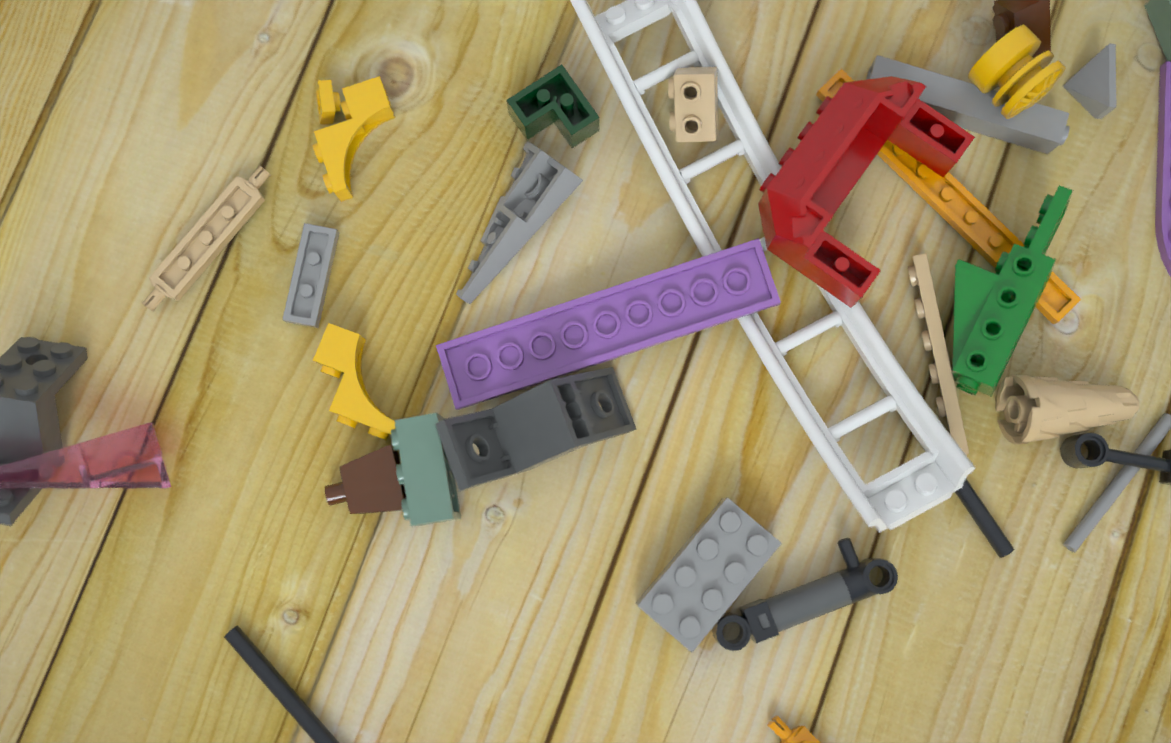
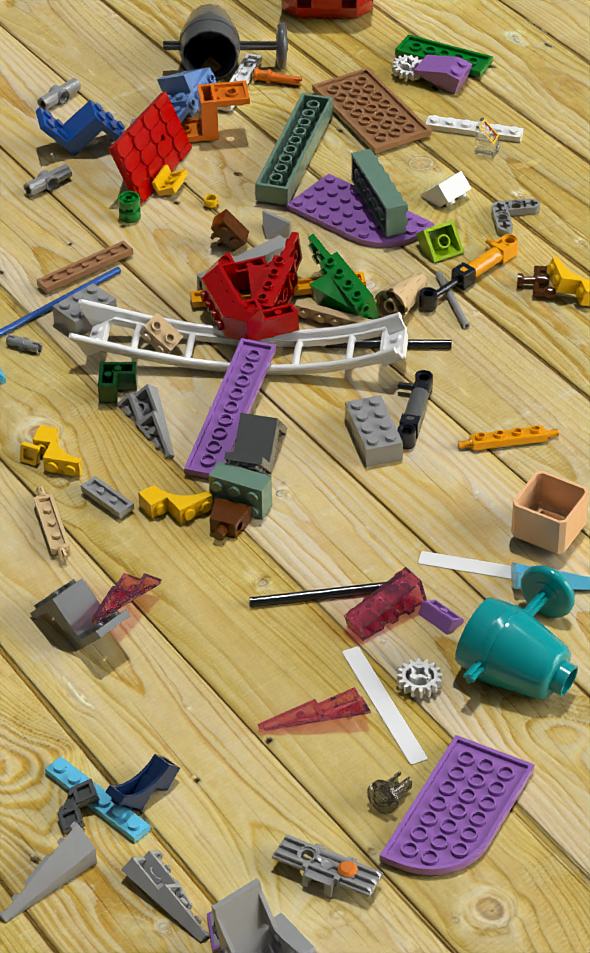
camera: 55 degrees left, 40 degrees down
(914, 203) = (278, 281): none -> red wedge
(1014, 70) = (248, 232): yellow wheel -> none

